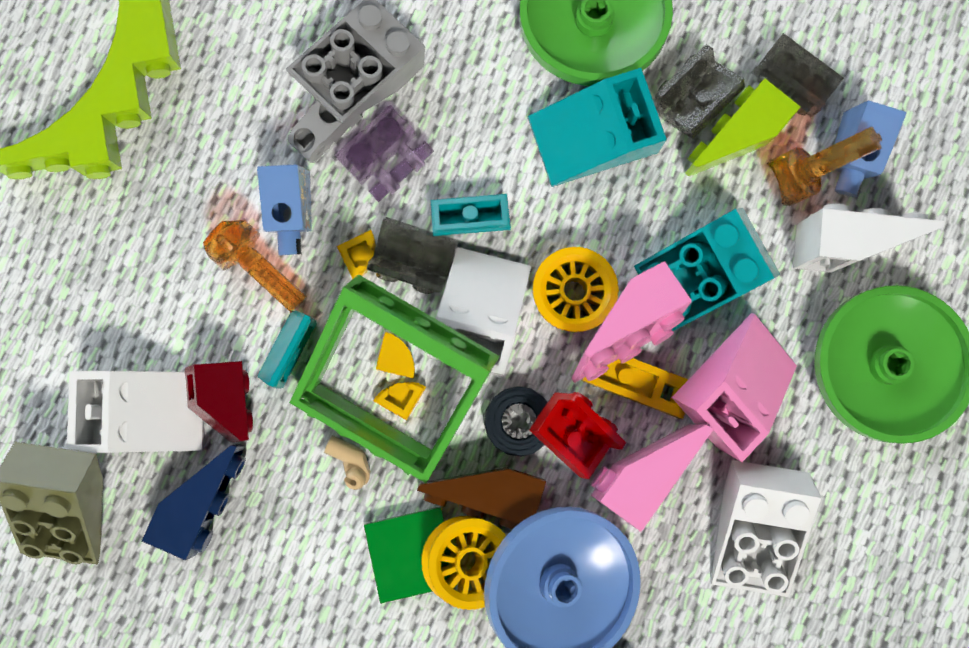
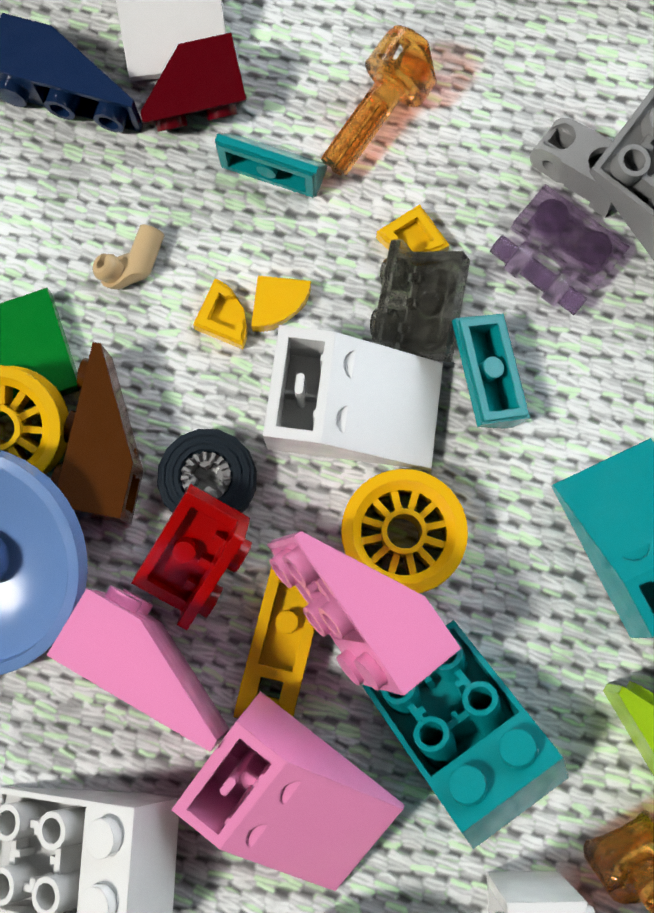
camera: 90 degrees right, 5 degrees down
(282, 188) = (467, 123): medium blue torso -> none
(414, 327) = (305, 308): bright green window -> none

